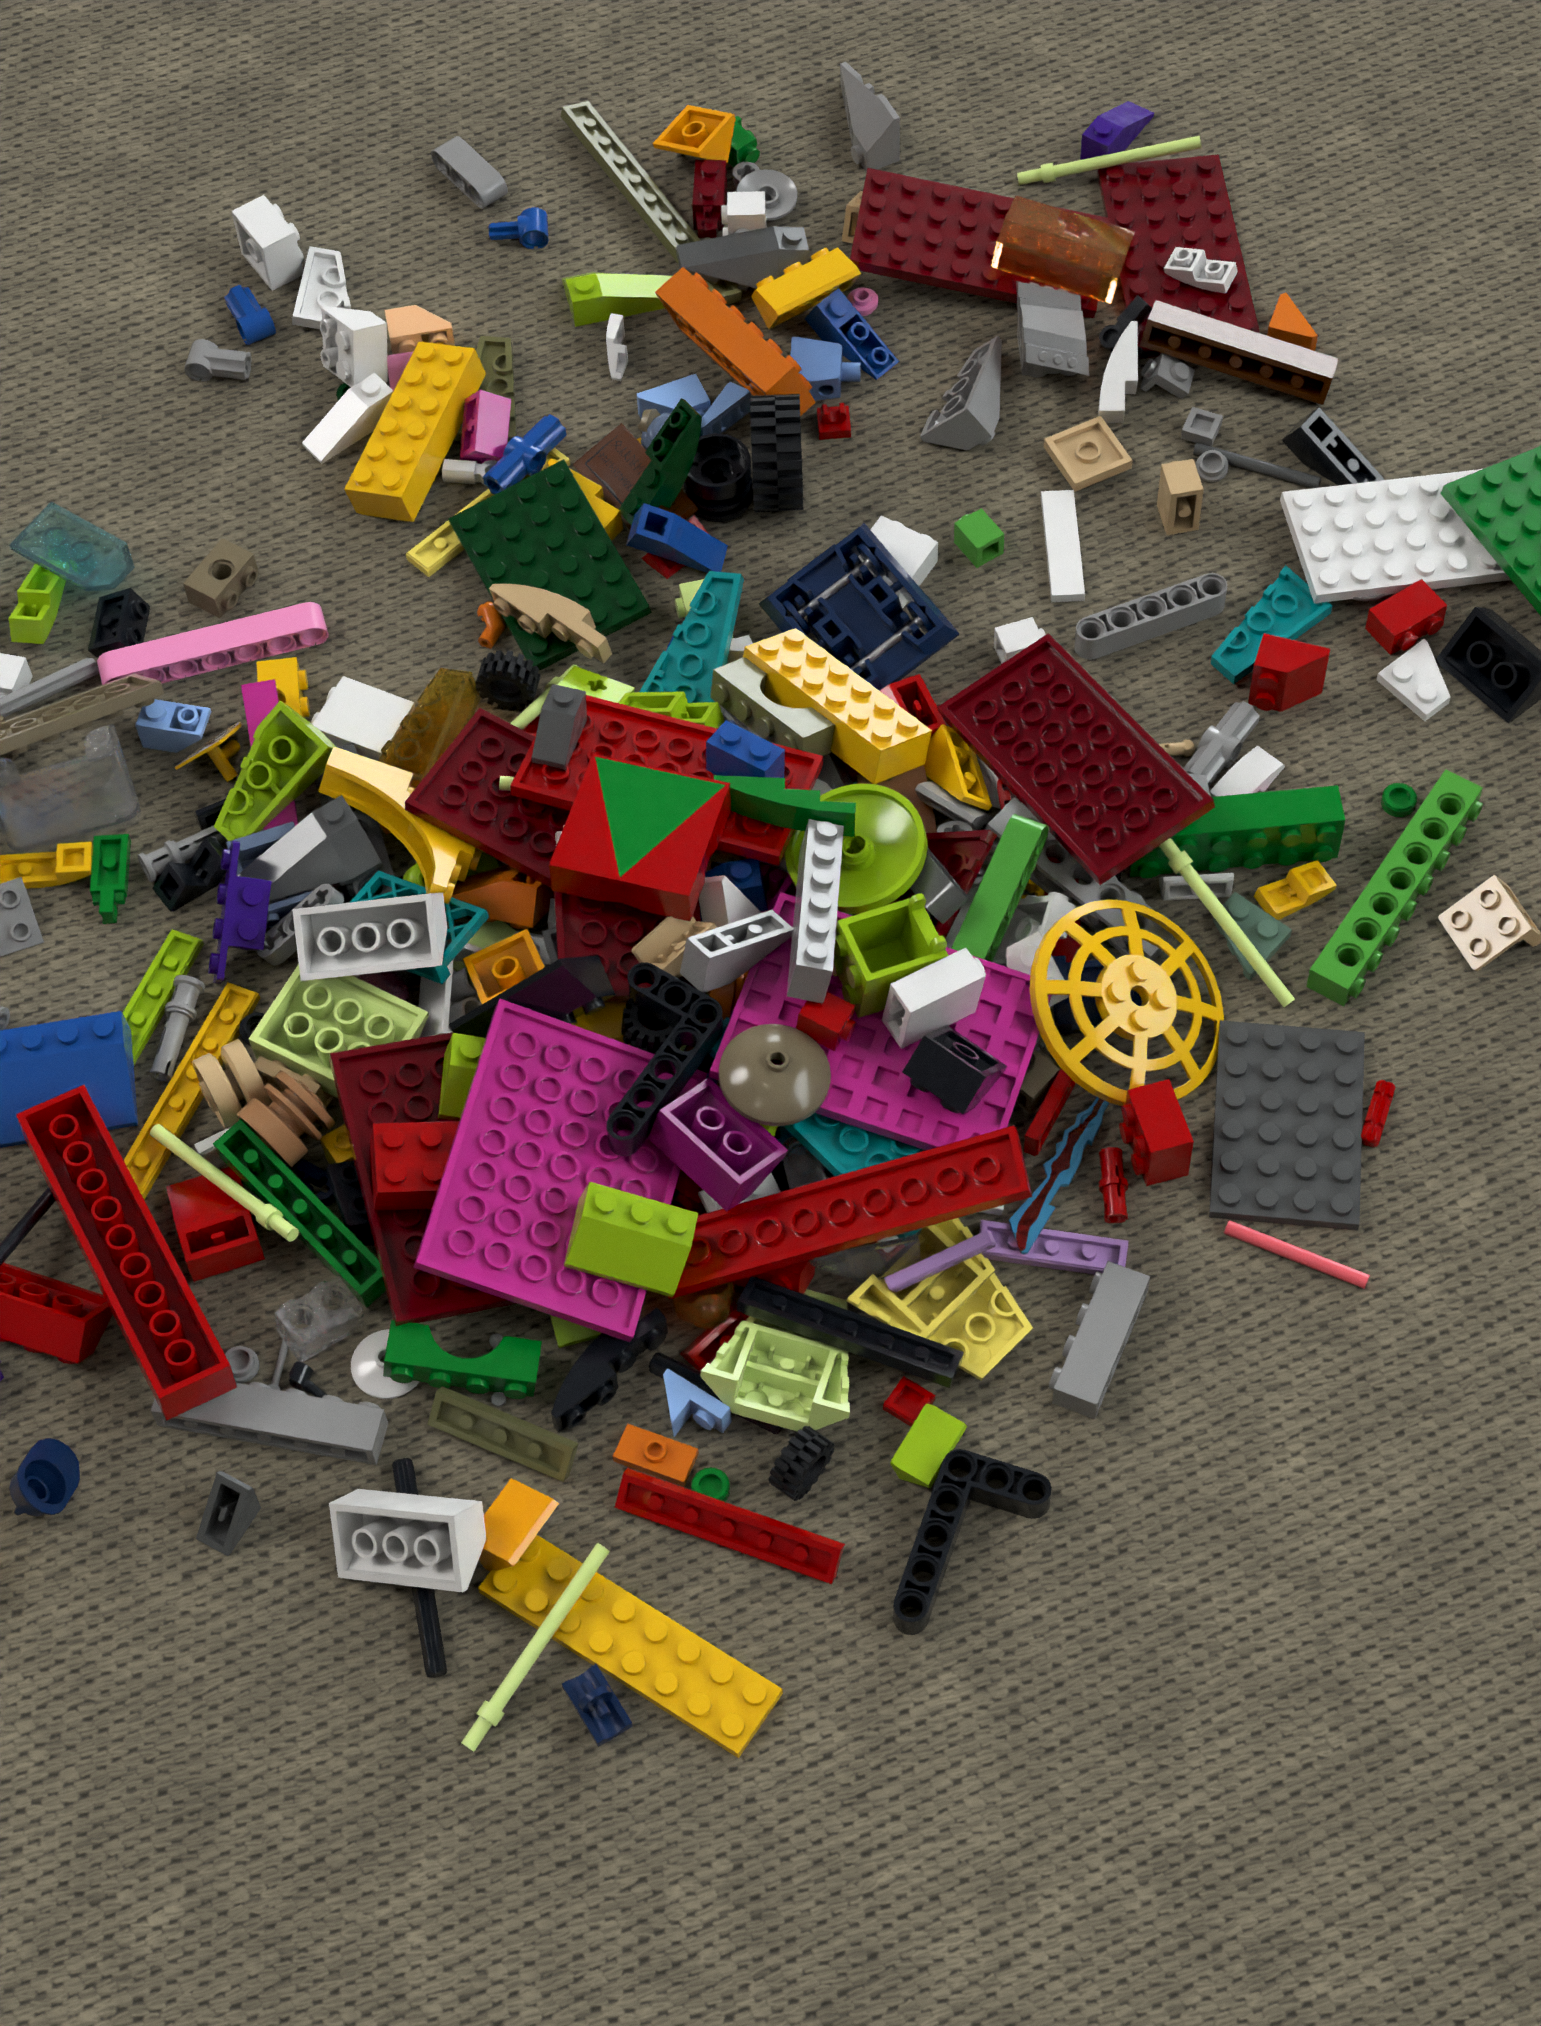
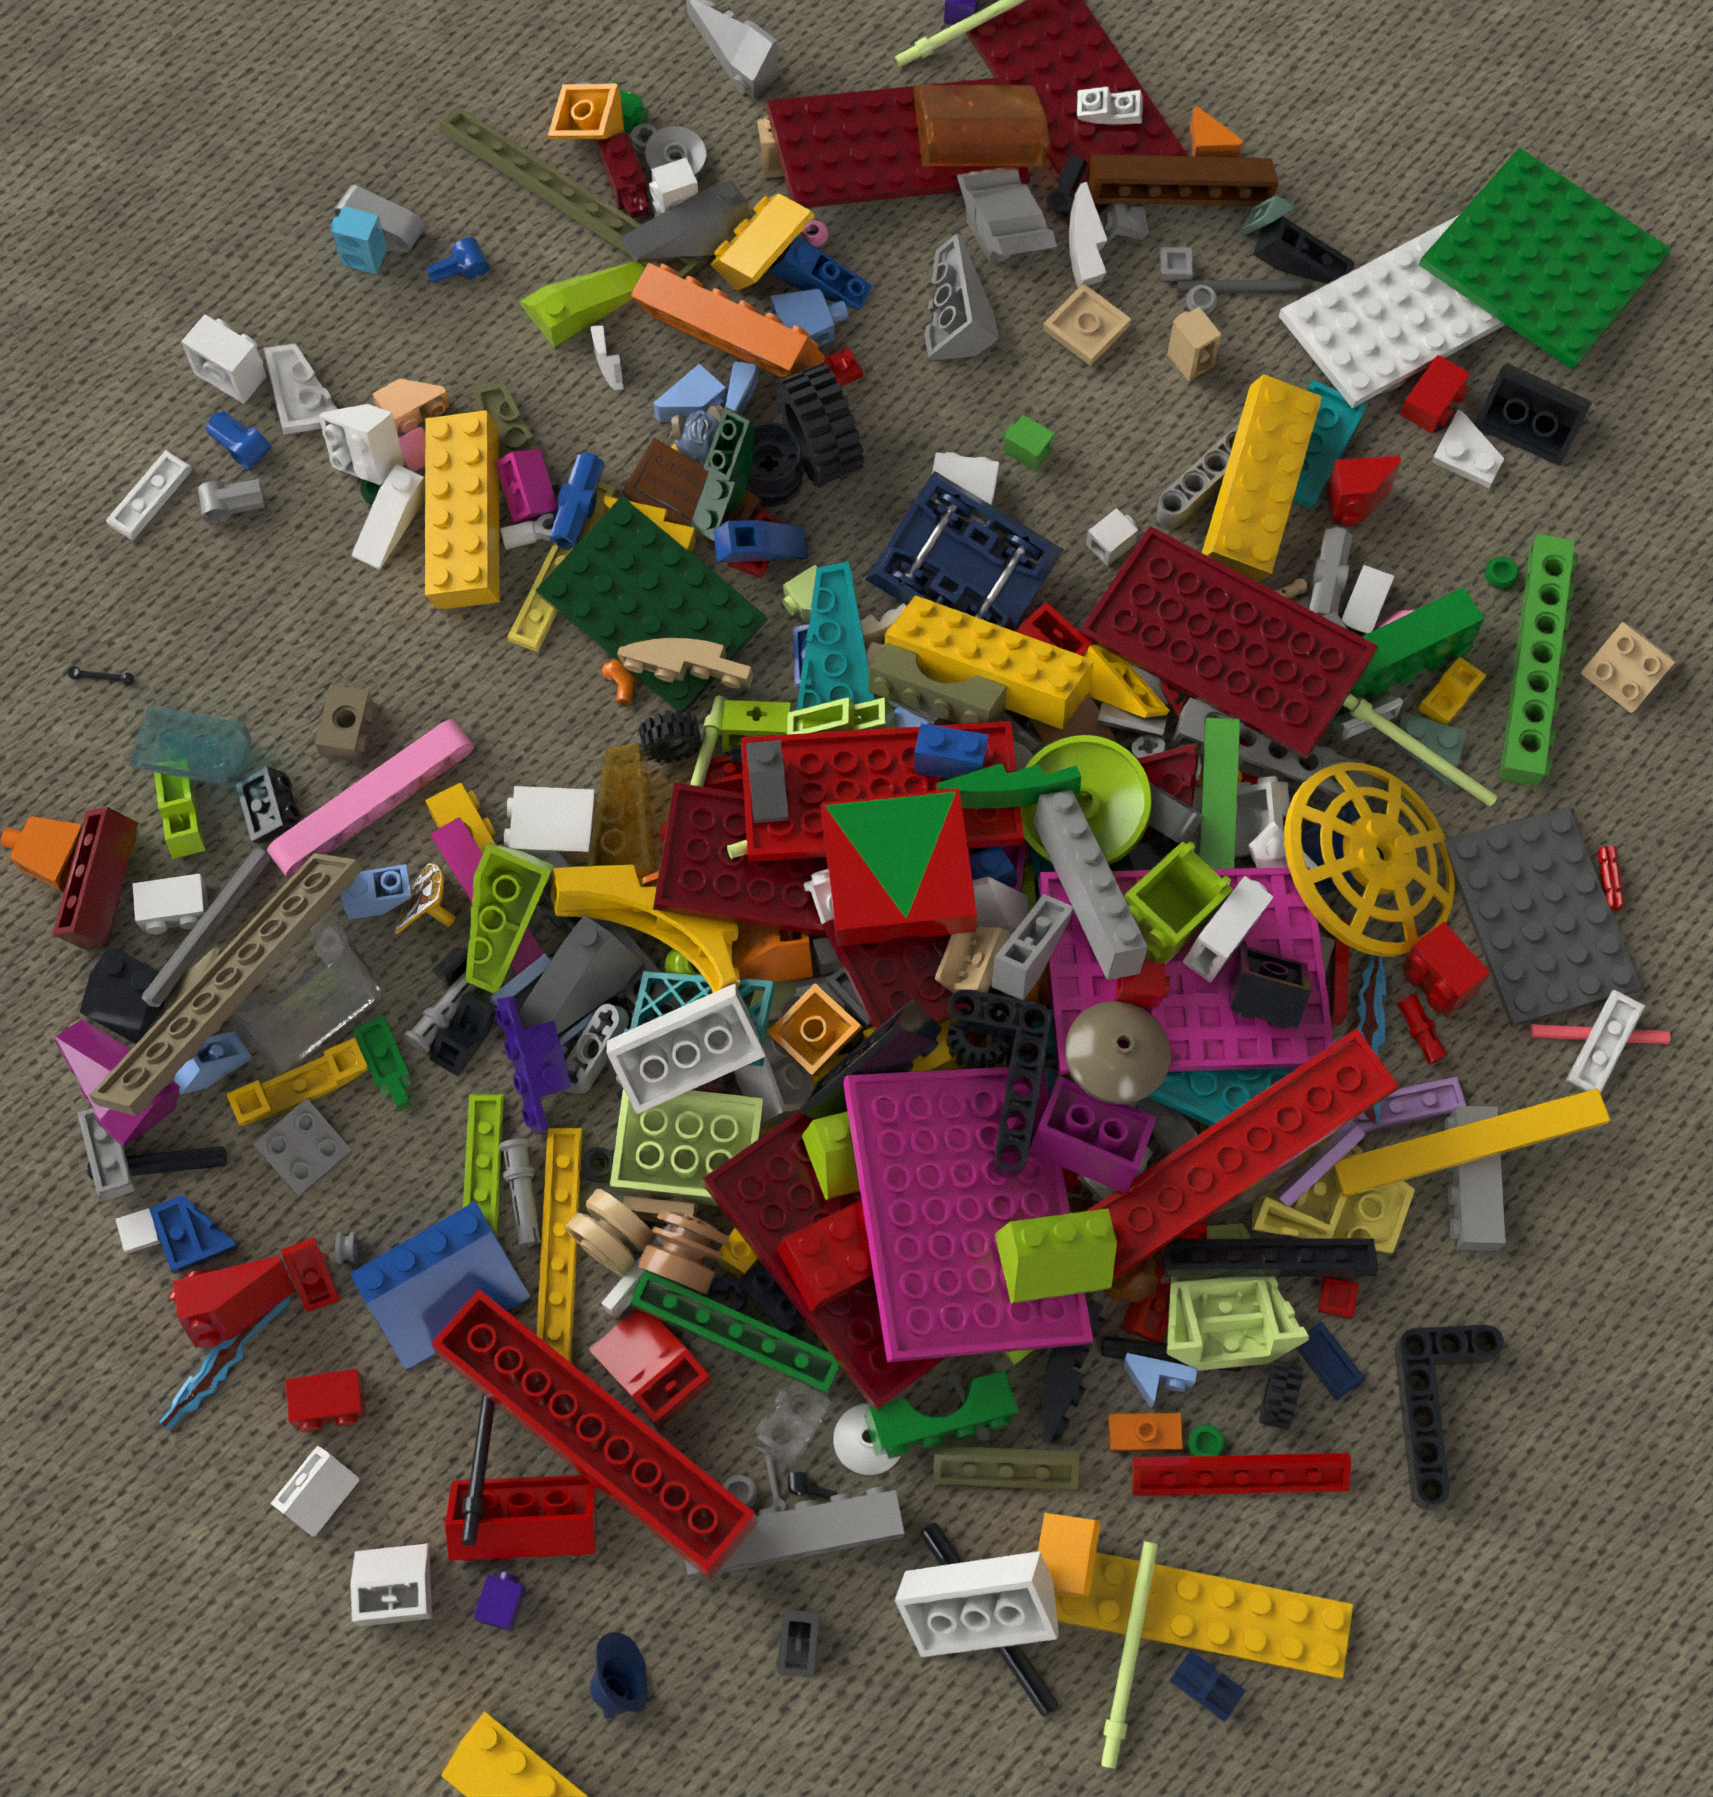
camera: 25 degrees left, 10 degrees up
(9, 464) = (75, 673): none -> black hinge
(149, 339) = (149, 495): none -> white tile
(265, 1214) = (710, 1351): yellowish green bar -> none
(438, 181) = (359, 239): none -> medium azure brick
(870, 1457) = (1330, 1362): none -> dark blue tile
(926, 1446) = (1376, 1334): lime slope -> none
(1062, 546) = (1103, 424): white tile -> none
(1105, 1297) = (1470, 1142): none -> yellow tile
(1187, 630) = (1261, 477): none -> yellow brick
(1295, 1261) = (1605, 1042): none -> white tile
(1312, 400) = (1266, 213): none -> sand green slope

